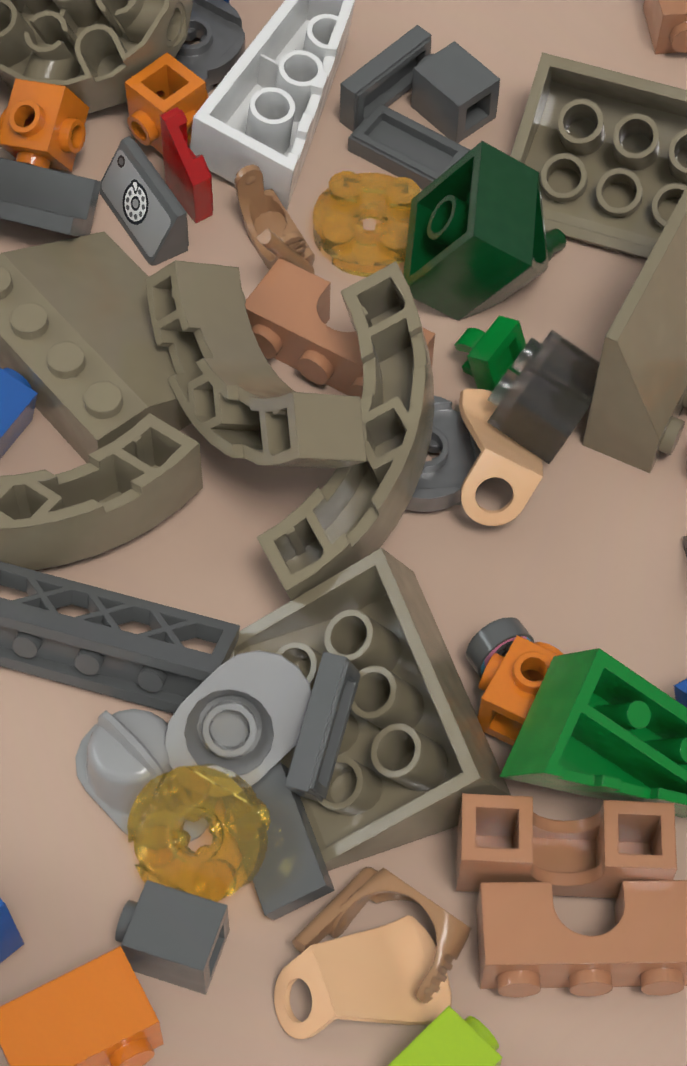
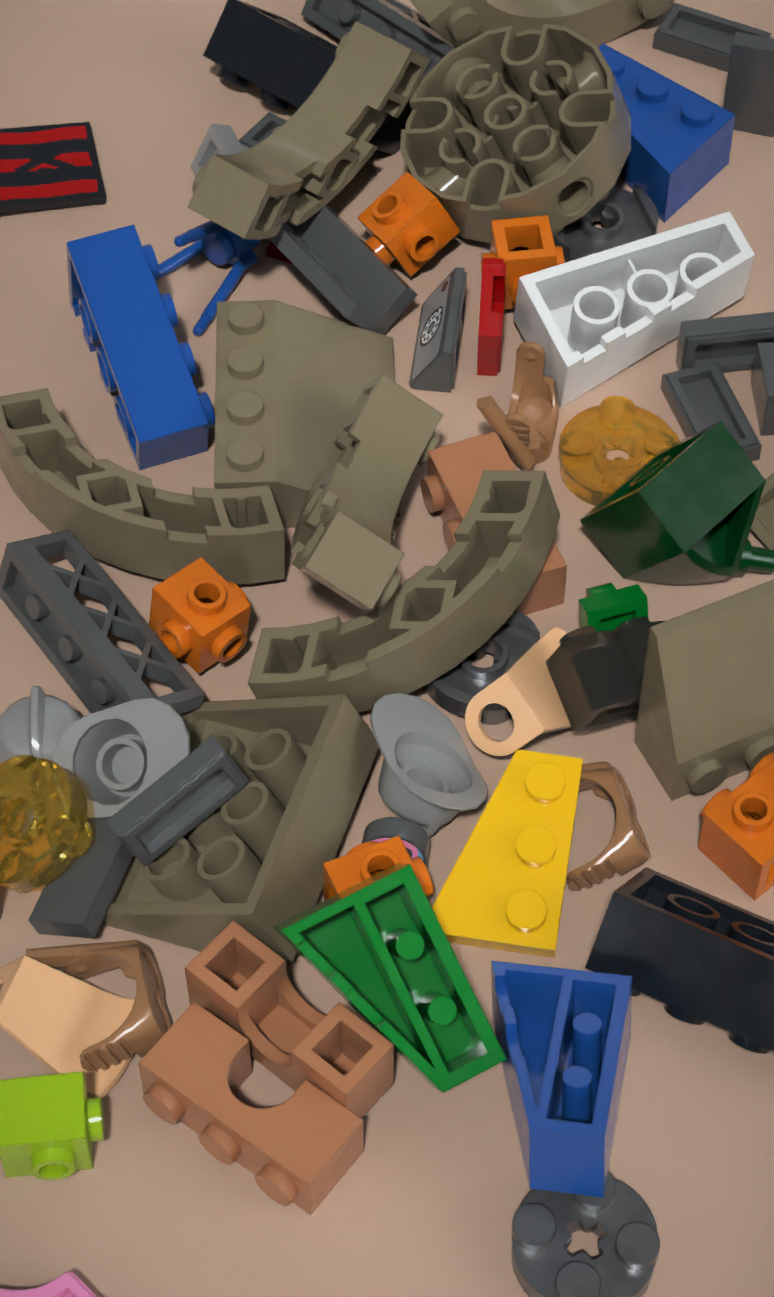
camera: 40 degrees right, 5 degrees down
(179, 561) = (200, 615): none -> orange brick
(467, 568) = (425, 763): none -> light grey piece
(598, 584) = (516, 861): none -> yellow wing
(611, 490) = (628, 844): none -> medium nougat helmet

